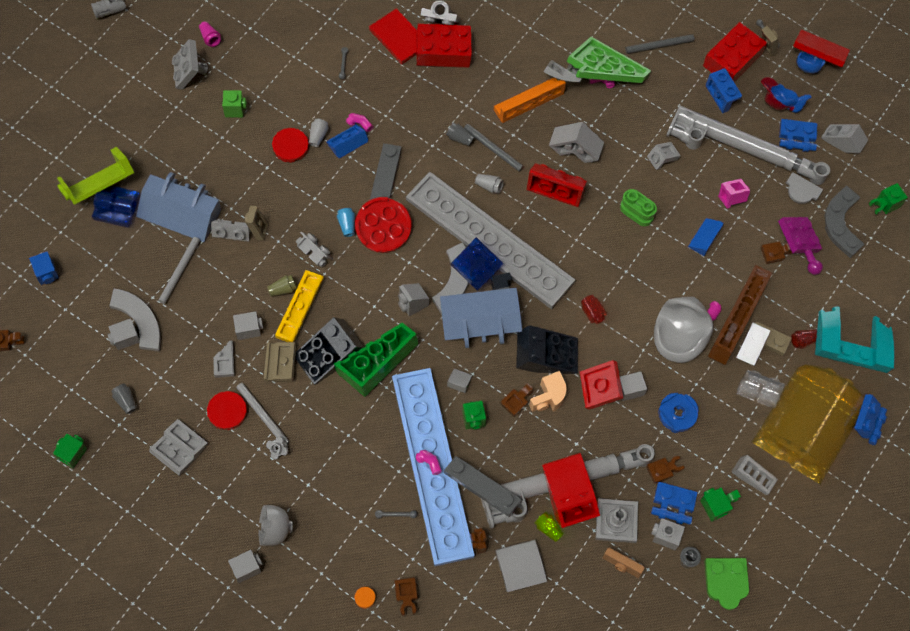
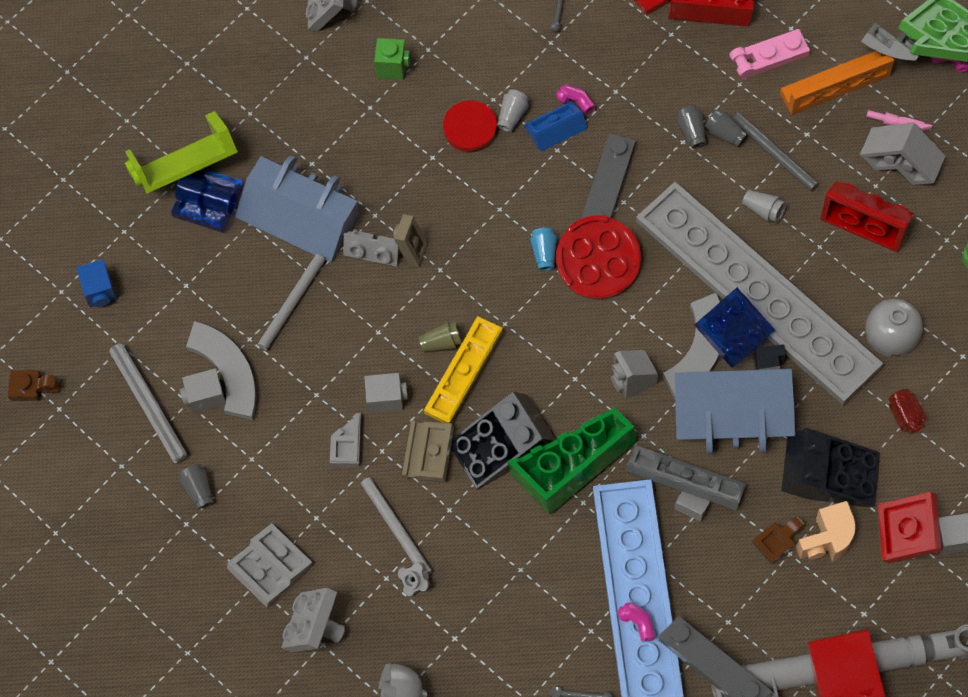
camera: 15 degrees right, 0 degrees up
(70, 450) = (112, 555): green brick -> none
(86, 345) = (148, 403): none -> light grey axle
(210, 482) = (311, 621): none -> light grey plate
(226, 410) = (344, 517): red tile -> none
(319, 253) = (500, 292): light grey hinge -> none
(437, 134) = (692, 125): none -> dark grey cone
(452, 364) = (685, 477): none -> dark grey plate
(474, 415) = (711, 557): green brick -> none
(484, 84) = (770, 54): none -> bright pink plate
(566, 121) = (892, 119): none -> bright pink hand
(580, 256) = (894, 327): none -> light grey cylinder

